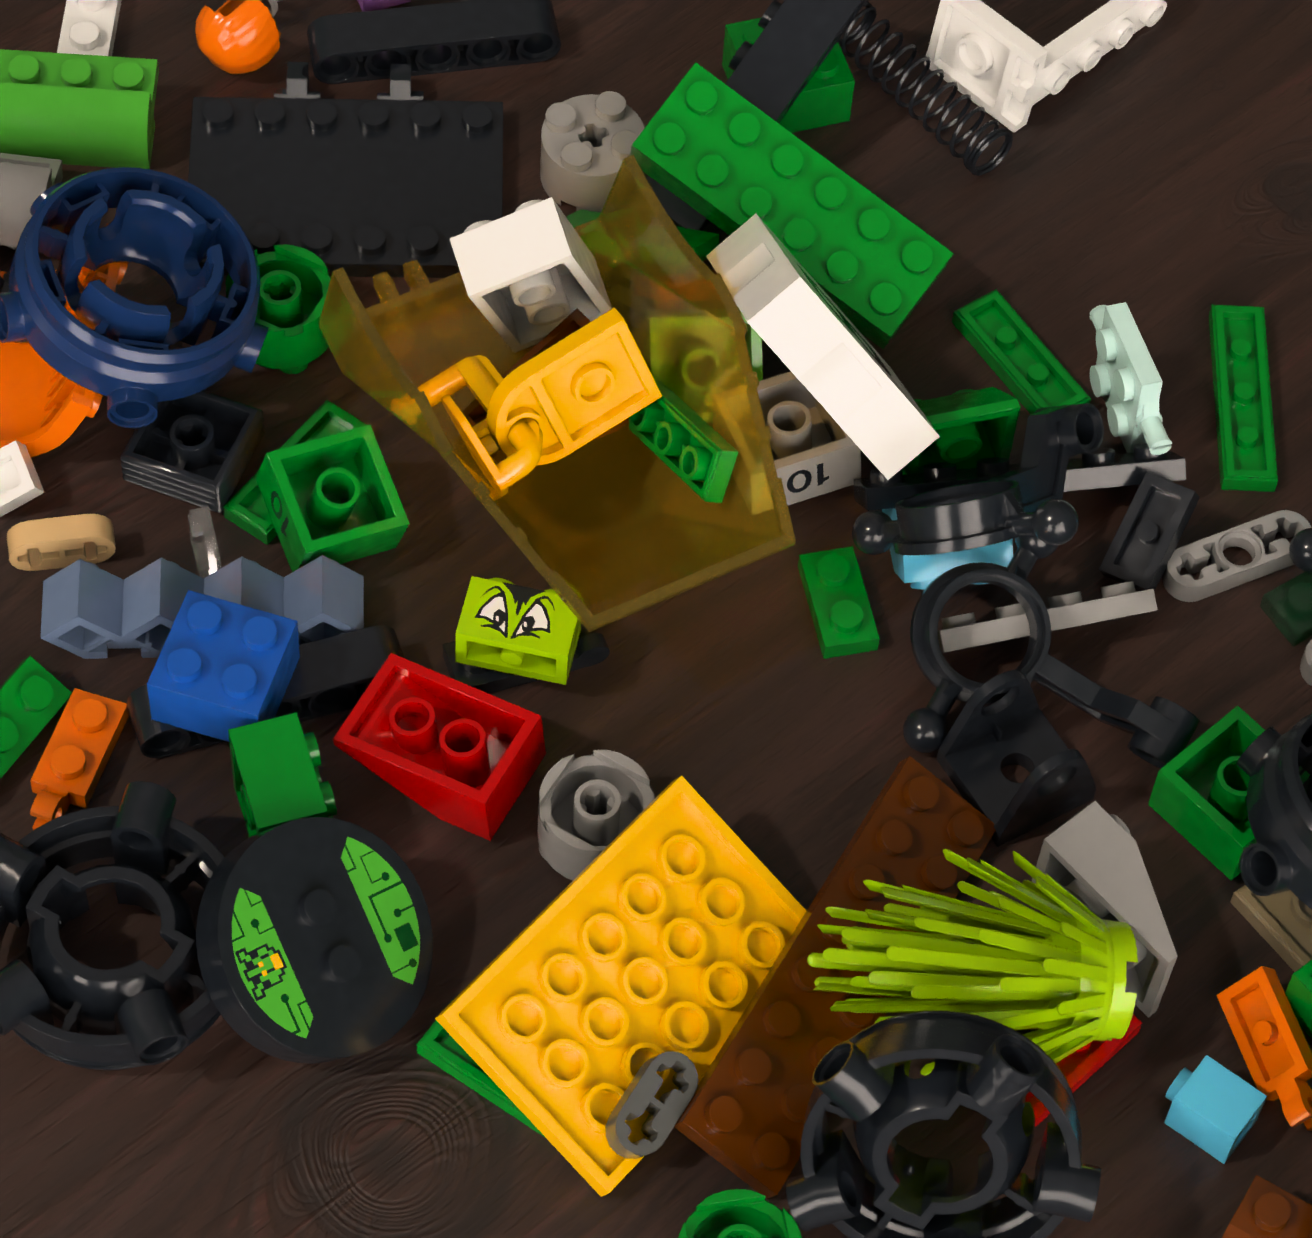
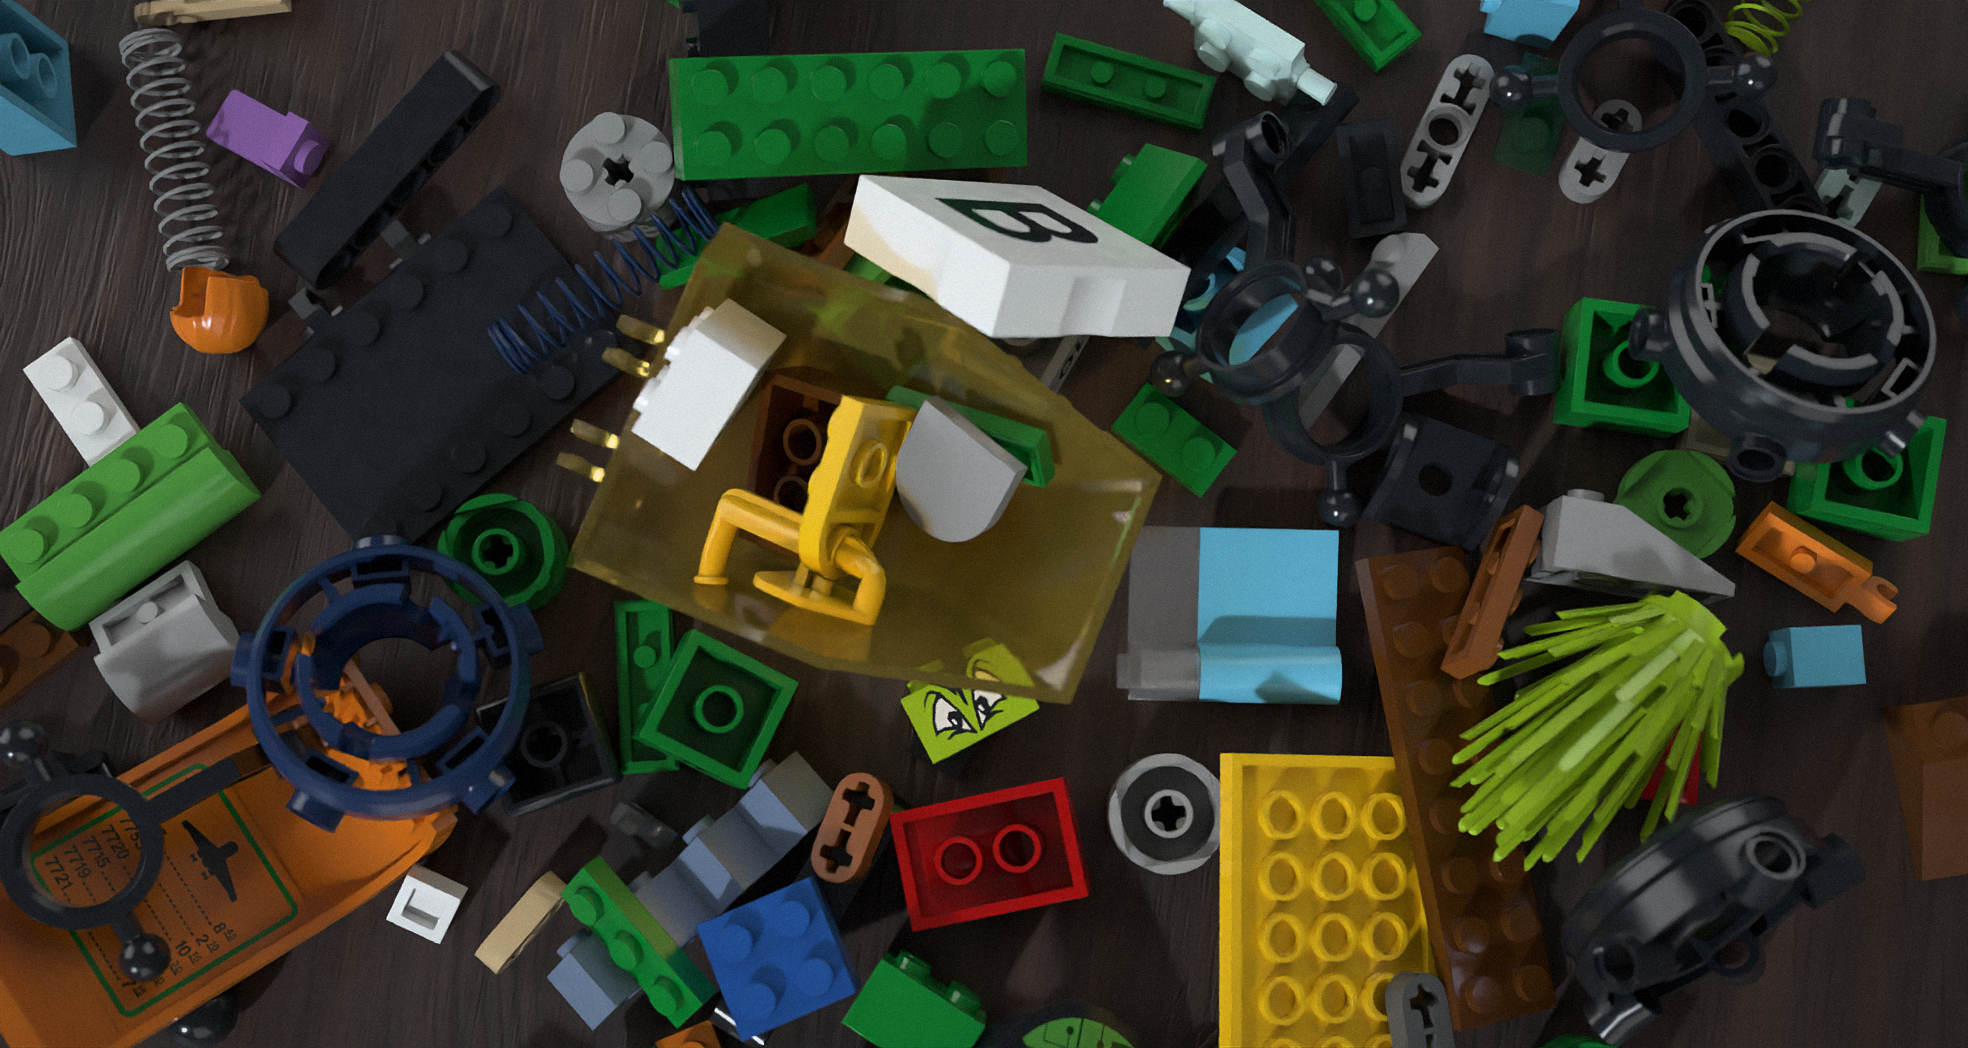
camera: 30 degrees left, 25 degrees up
(132, 595) = (637, 942): none -> green plate
(355, 638) = (864, 834): none -> dark orange beam
(415, 190) = (515, 349): none -> dark blue piece
(647, 442) = (953, 474): none -> light grey tile
(773, 740) = (1232, 616): none -> medium azure door
(994, 847) = (1494, 593): none -> dark orange plate
(1227, 914) = (1695, 477): none -> bright green plate

